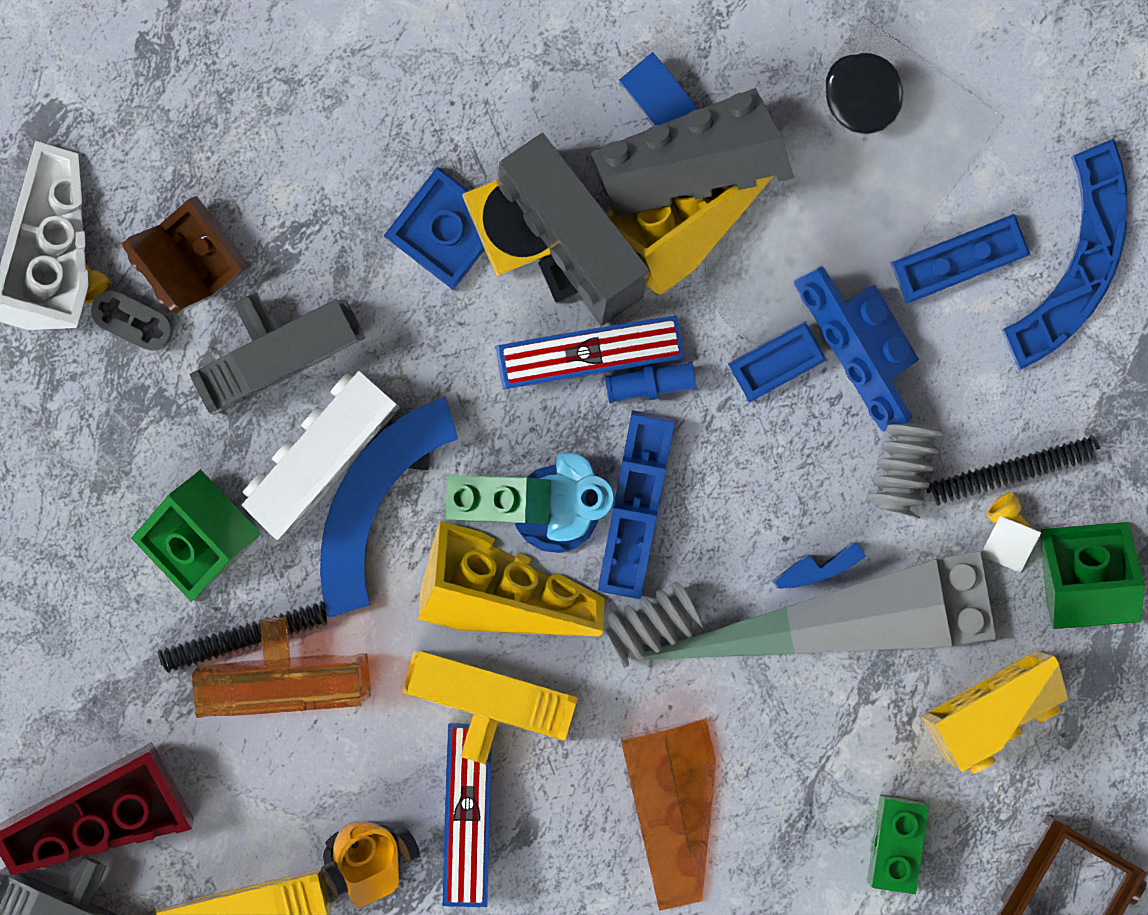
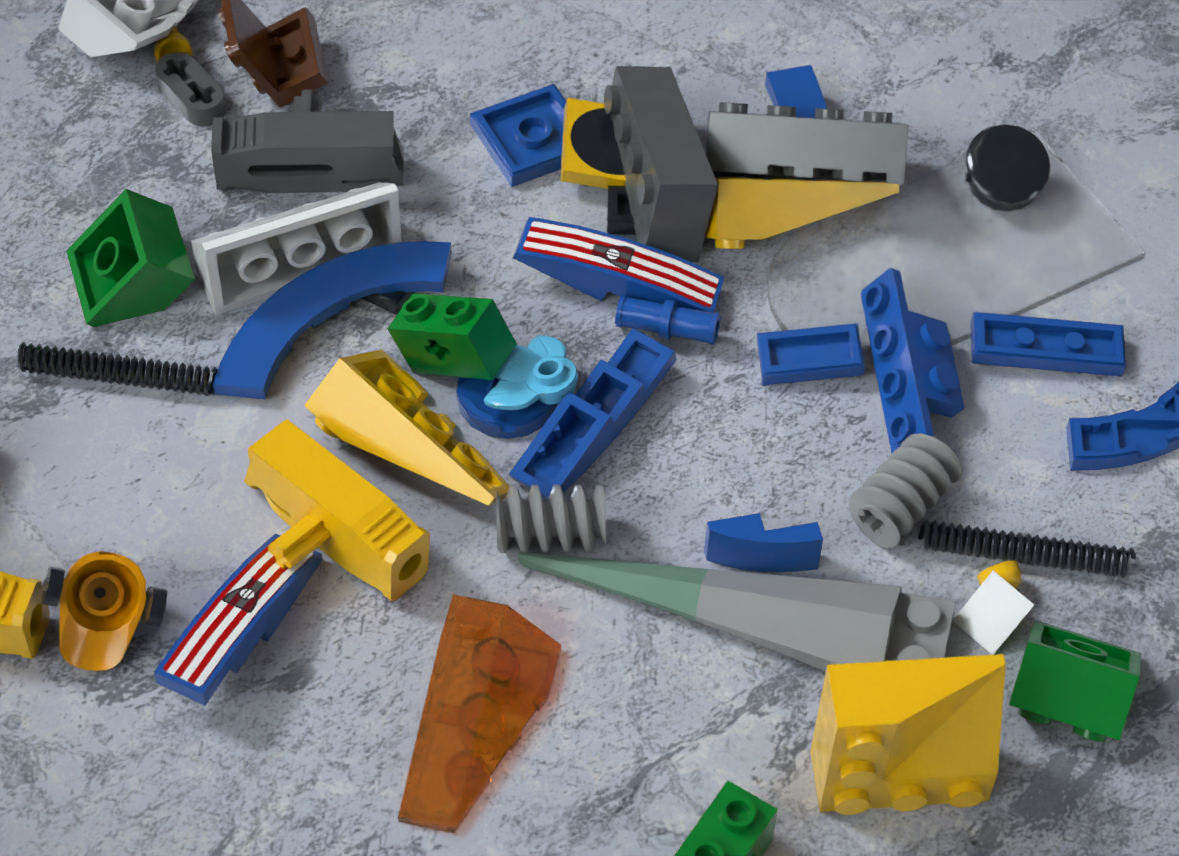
camera: 25 degrees right, 35 degrees down
(280, 681) = (125, 406): clear orange piece -> none

